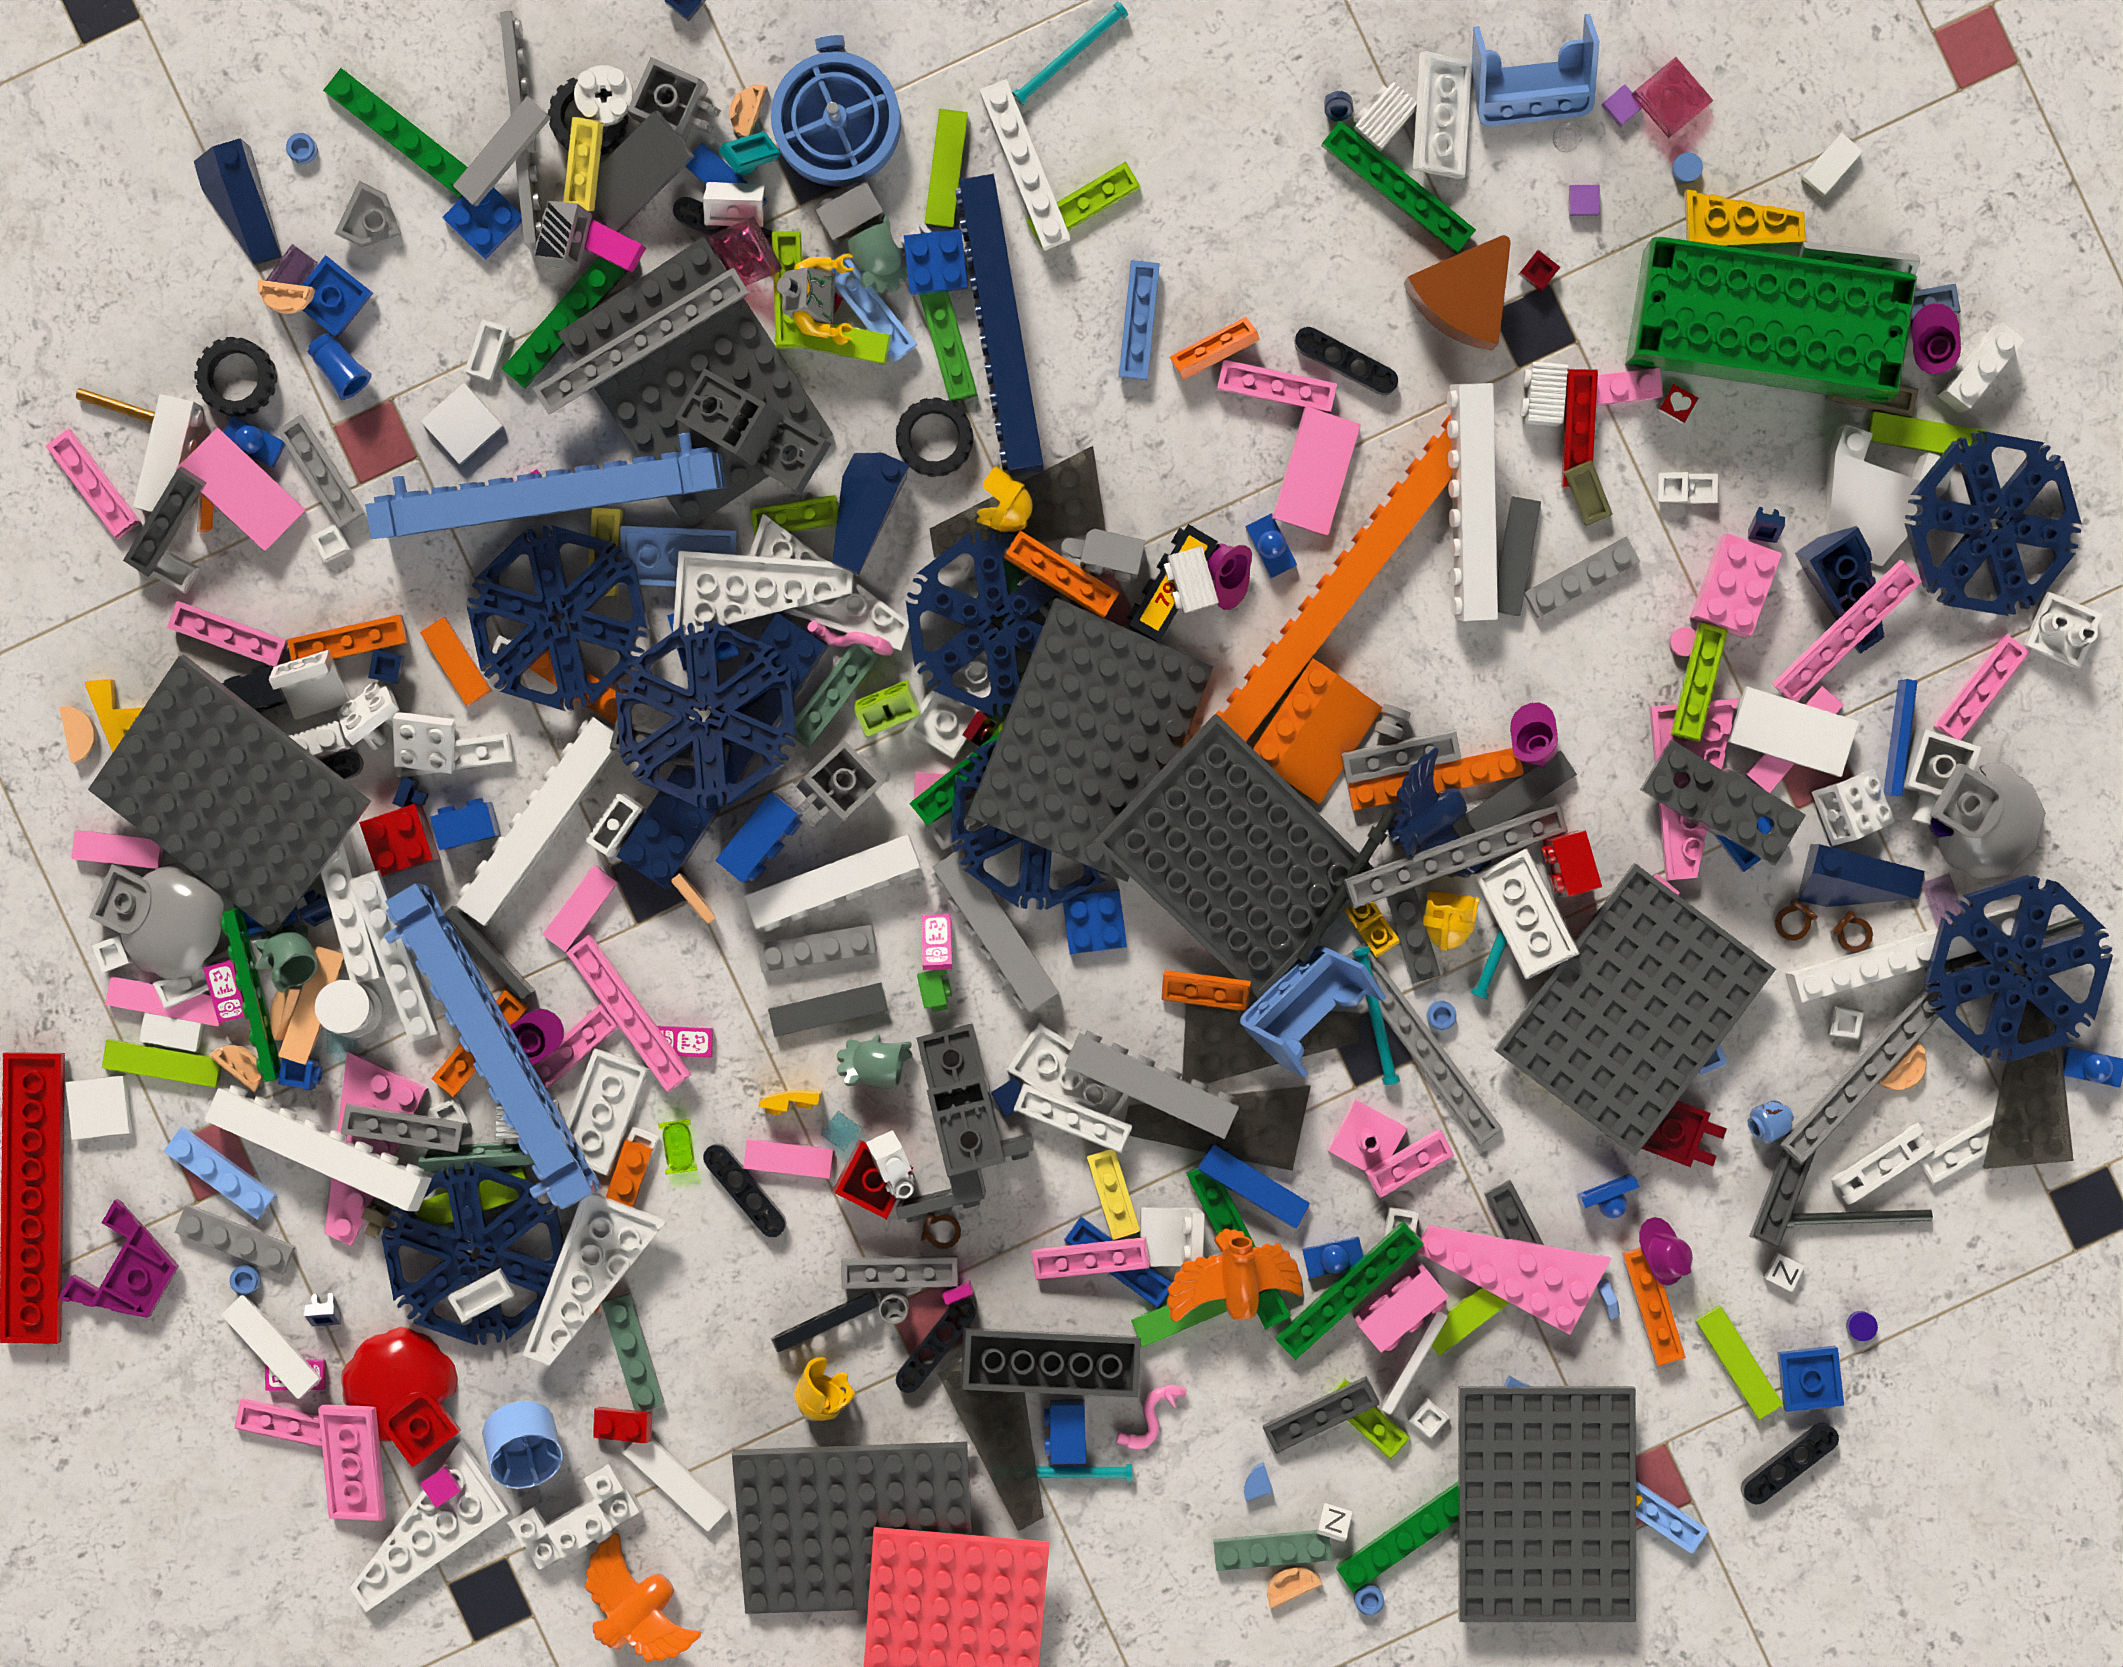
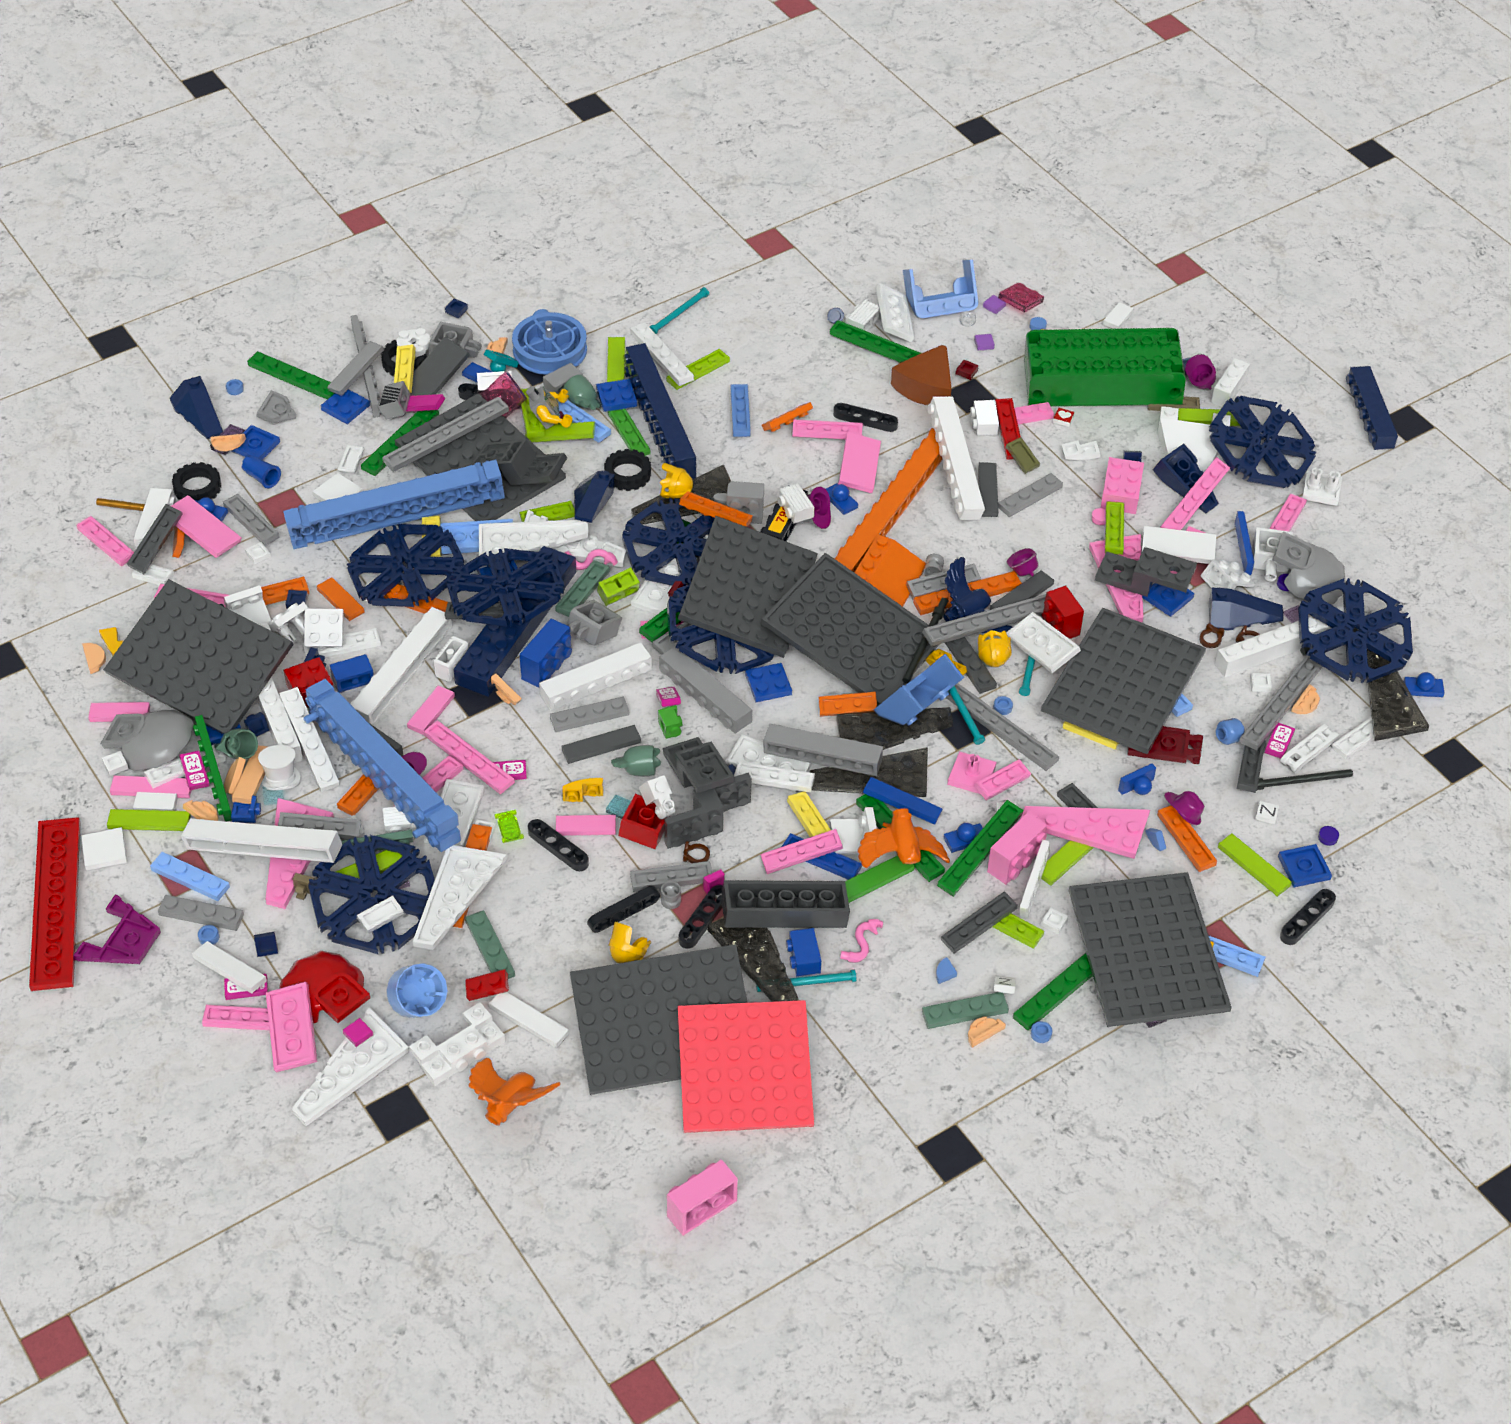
camera: 10 degrees left, 40 degrees down
(1842, 1142) = (1279, 740): none -> tile

